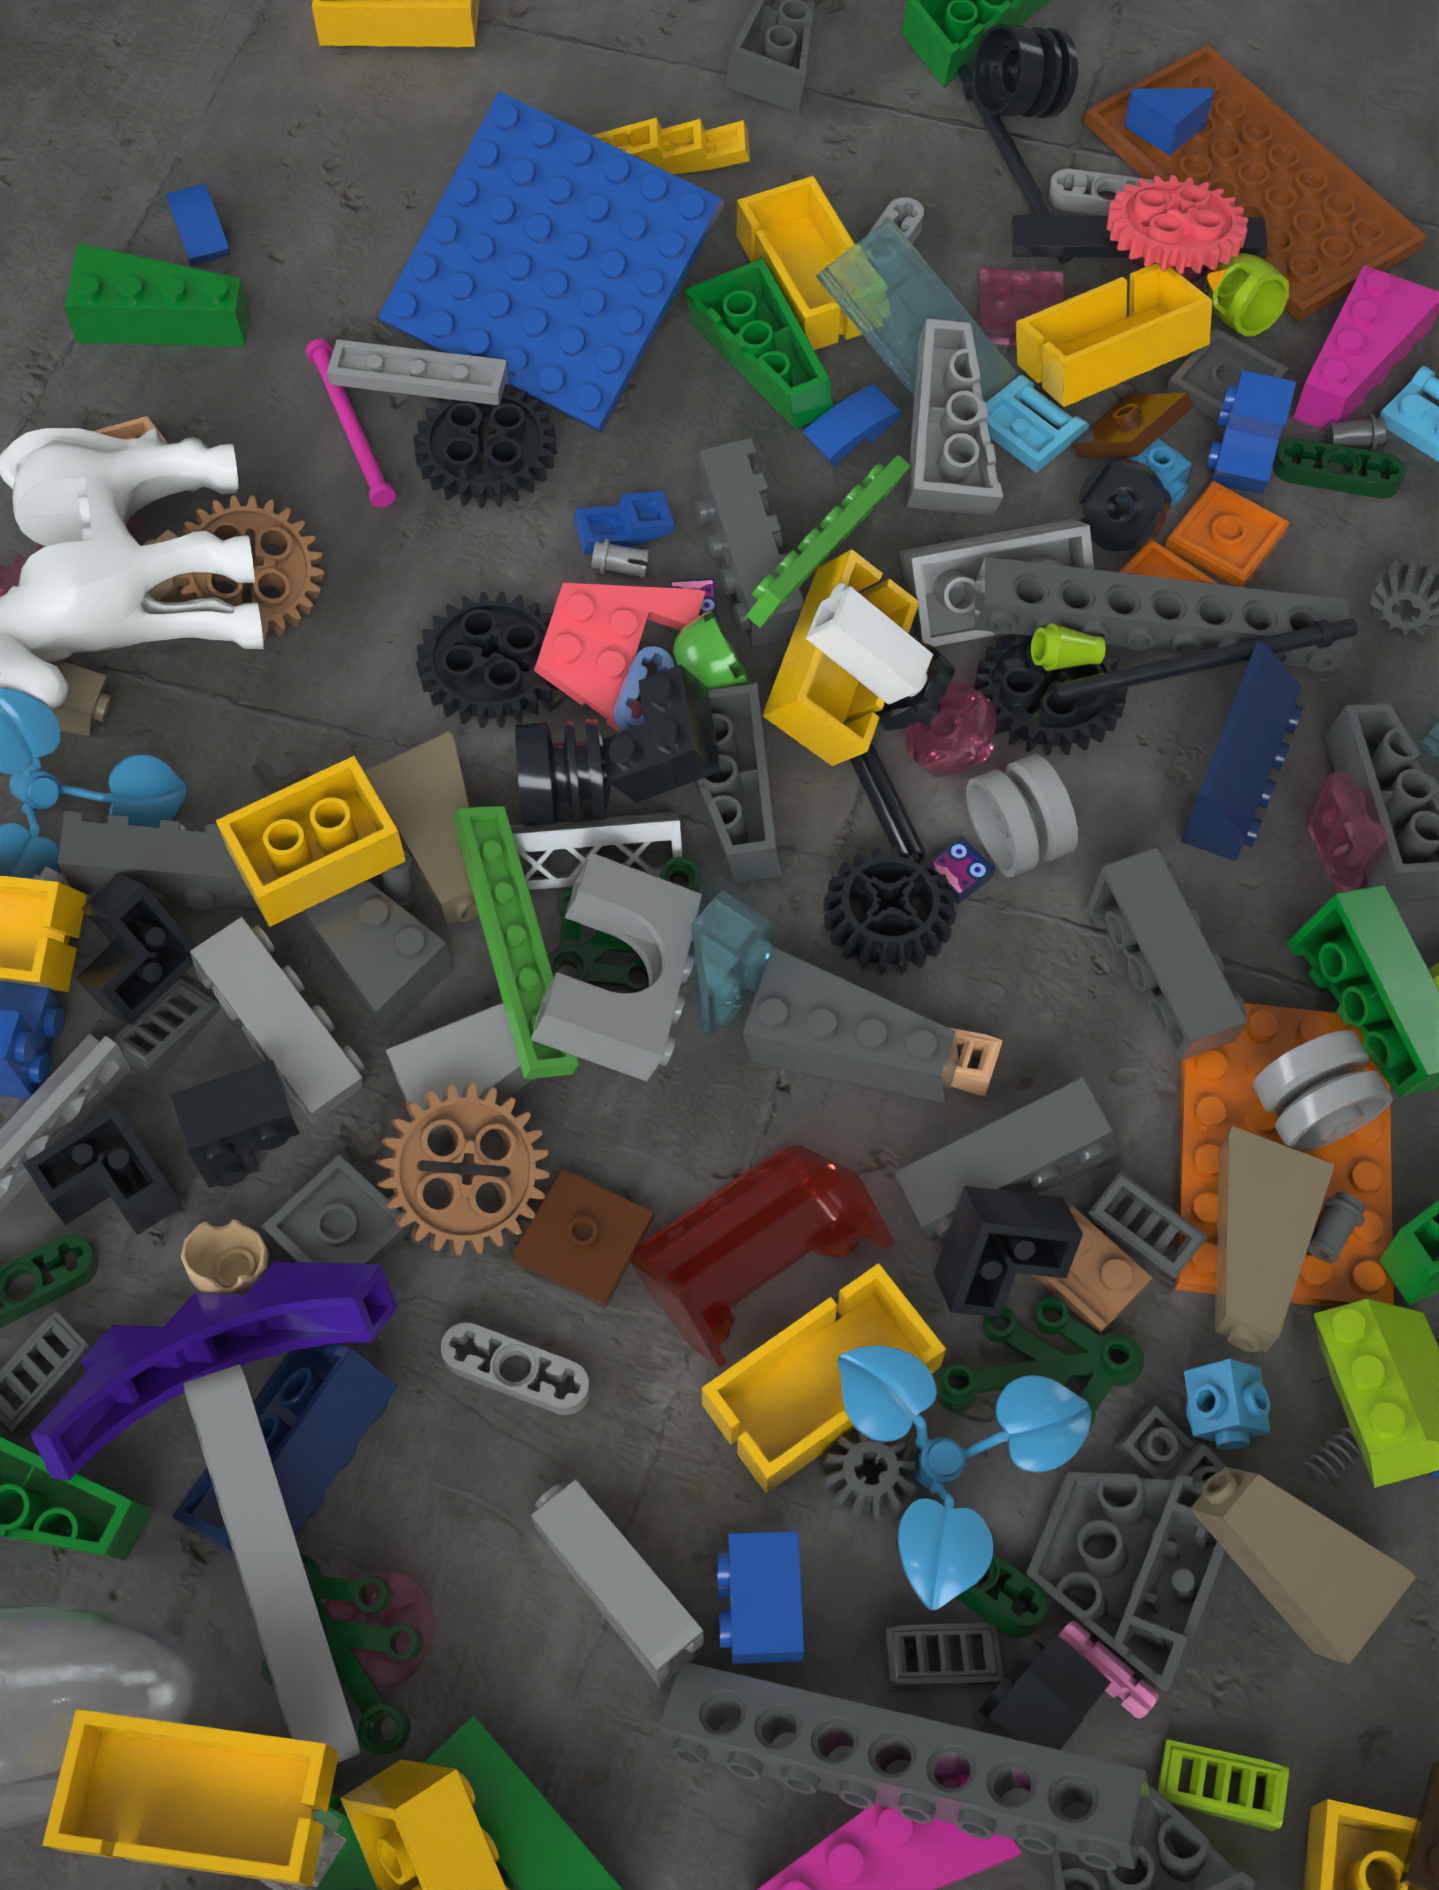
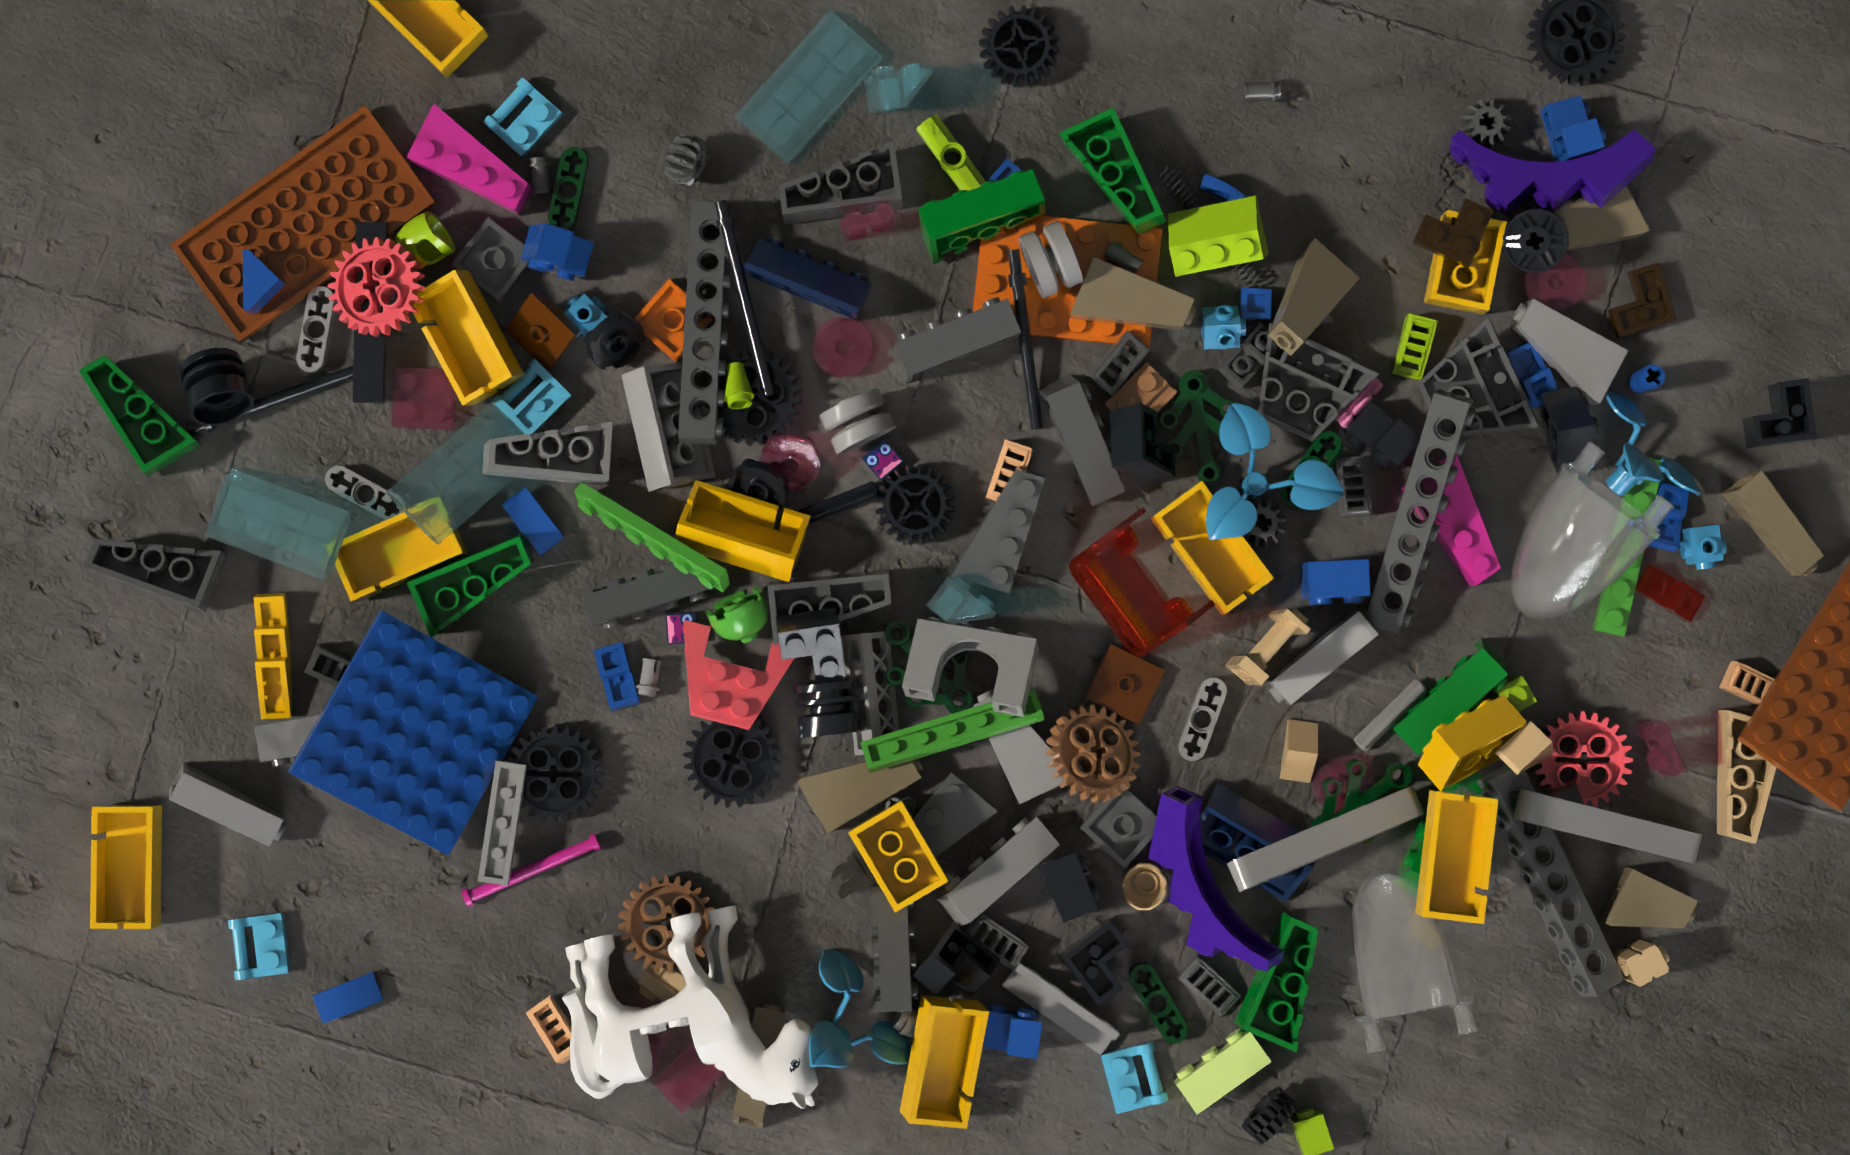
camera: 90 degrees left, 25 degrees up
(152, 302) = (428, 1027): green wedge -> none
(280, 149) = (269, 943): none -> medium azure plate
(448, 1543) = (1299, 751): none -> tan slope
(479, 67) = (226, 805): none -> light grey slope
(504, 1723) = (1390, 715): none -> light grey axle
(609, 1430) = (1251, 666): none -> tan fence
(630, 687) = (761, 664): medium blue beam -> none
(840, 140) = (278, 524): none -> clear light blue piece
(869, 645) = (749, 513): white brick -> none
(1131, 836) = (845, 330): none -> clear pink plate
(1180, 1071) = (1017, 281): none -> black bar
(1227, 535) = (623, 271): orange tile -> none
(1279, 1463) = (1255, 303): none -> blue plate

